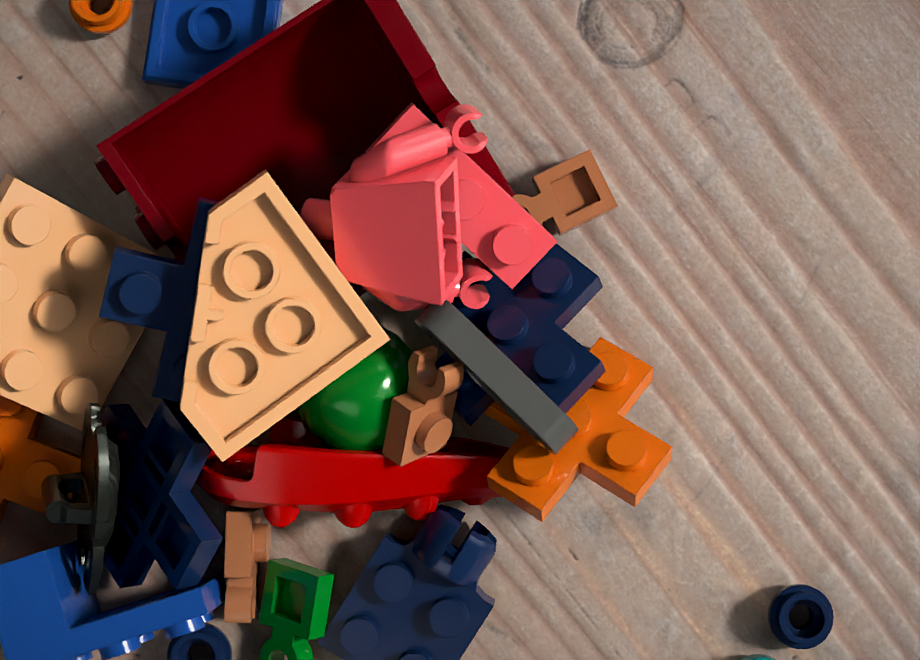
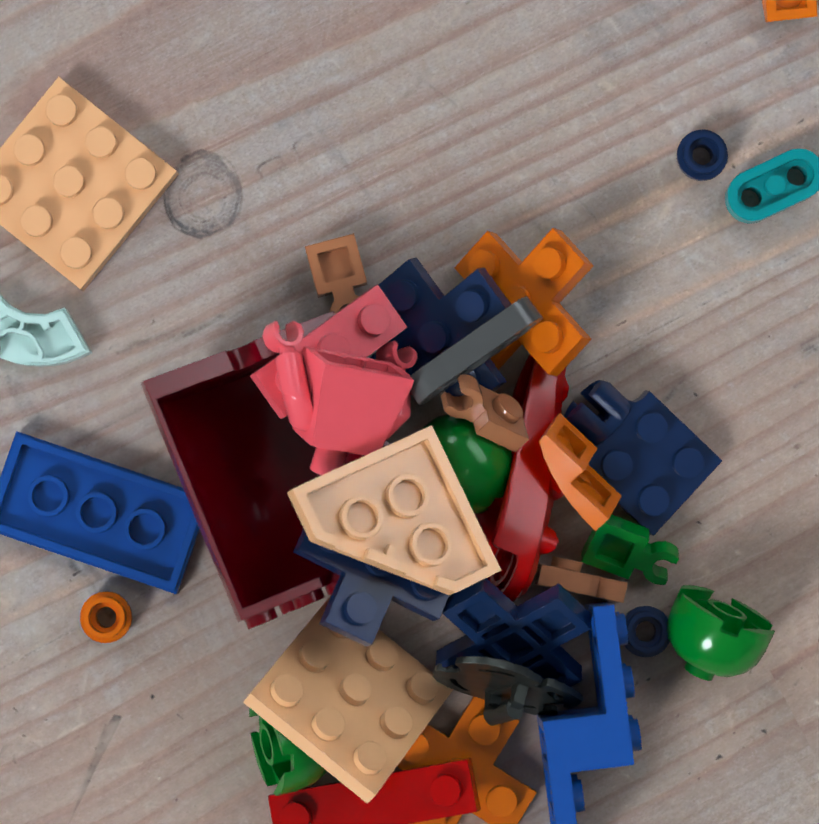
camera: 80 degrees left, 0 degrees up
(385, 520) = (567, 458): none -> orange slope

